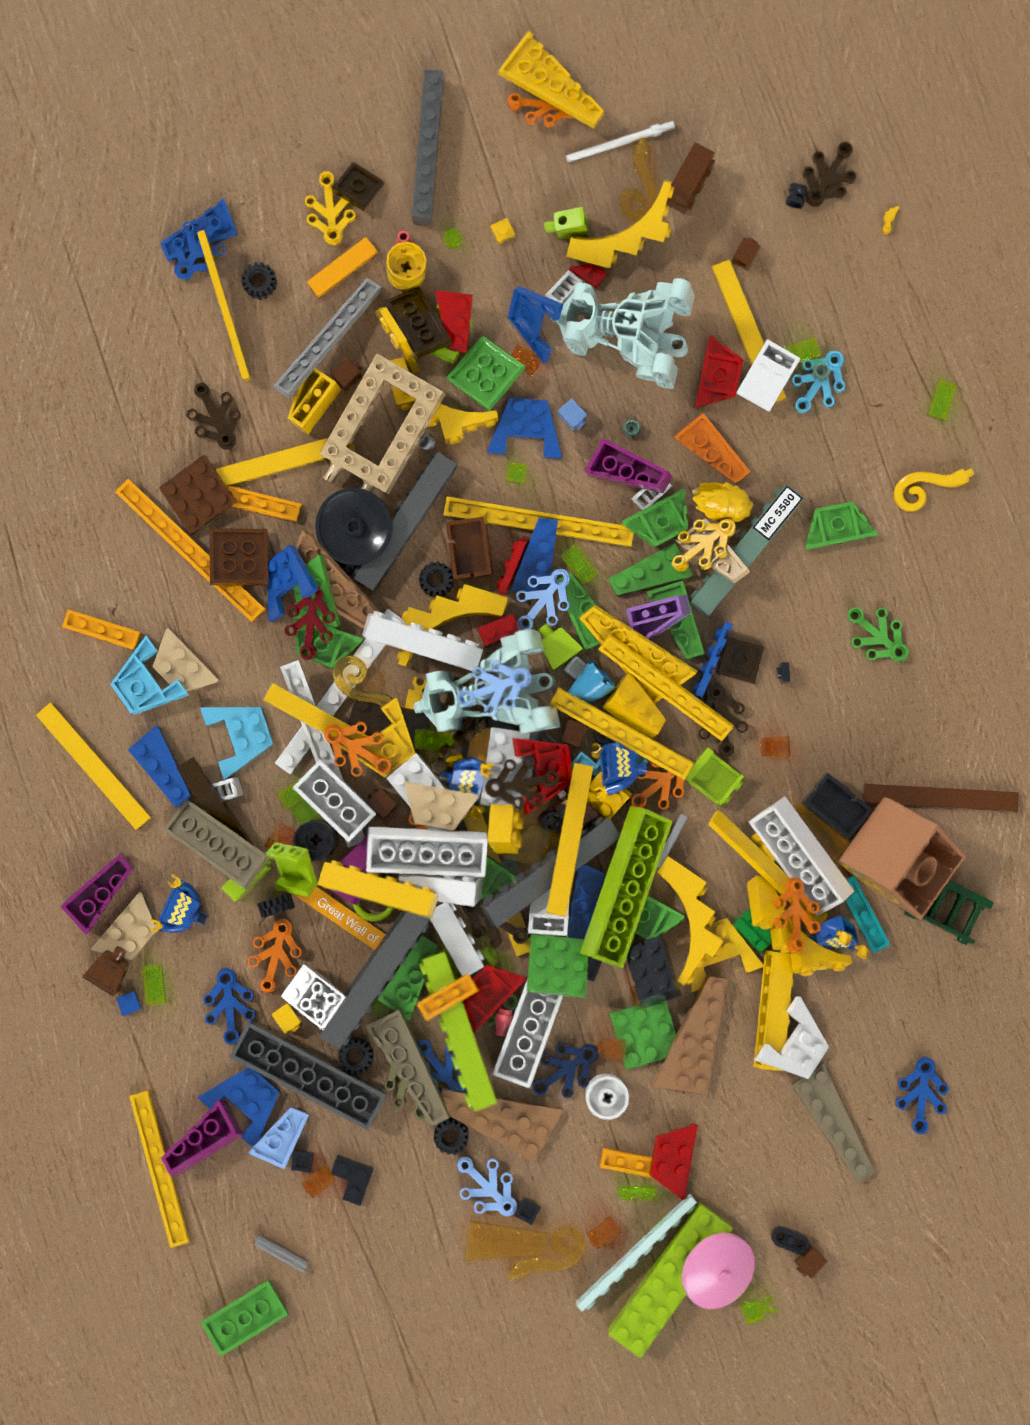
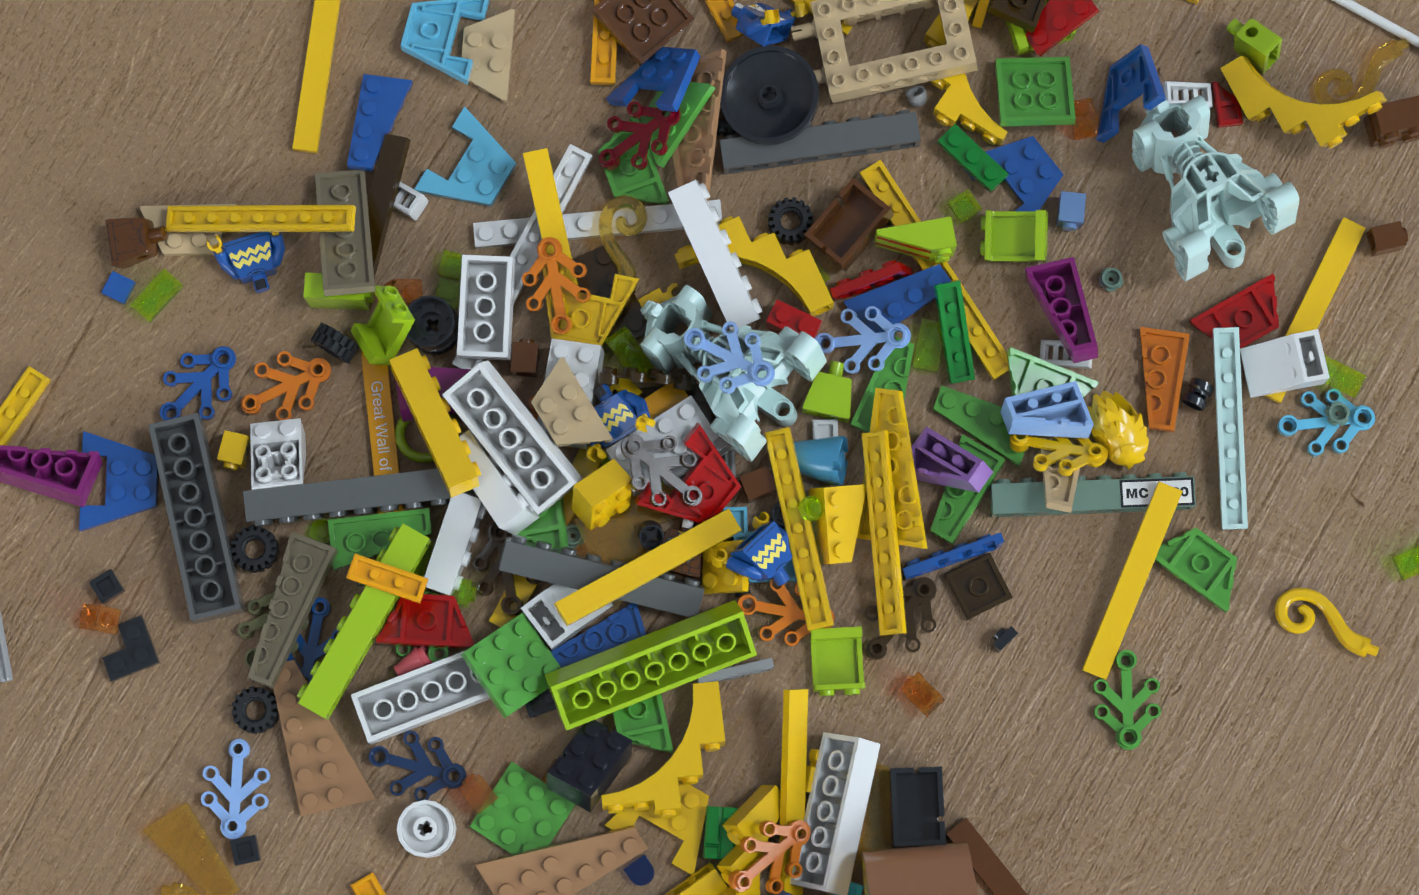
camera: 50 degrees right, 5 degrees down
(93, 898) = (194, 165): magenta wedge -> none
(164, 886) = (261, 218): none -> yellow tile
(281, 1138) = (109, 547): light blue wing -> none
(309, 490) = (765, 23): none -> blue torso
(492, 443) = (972, 158): none -> green plate
(519, 513) = (922, 240): none -> lime slope
(559, 460) = (1015, 236): none -> lime panel
(585, 544) = (954, 331): none -> green plate
(617, 717) = (810, 508): none -> clear neon green plate
(681, 532) = (1048, 412): none -> light blue wedge
(735, 994) = (640, 871): none -> clear blue tile
(740, 439) = (1197, 394): none -> black wheel
(776, 439) = (1230, 428): none -> light aqua plate
(814, 571) = (1132, 580): none -> yellow tile

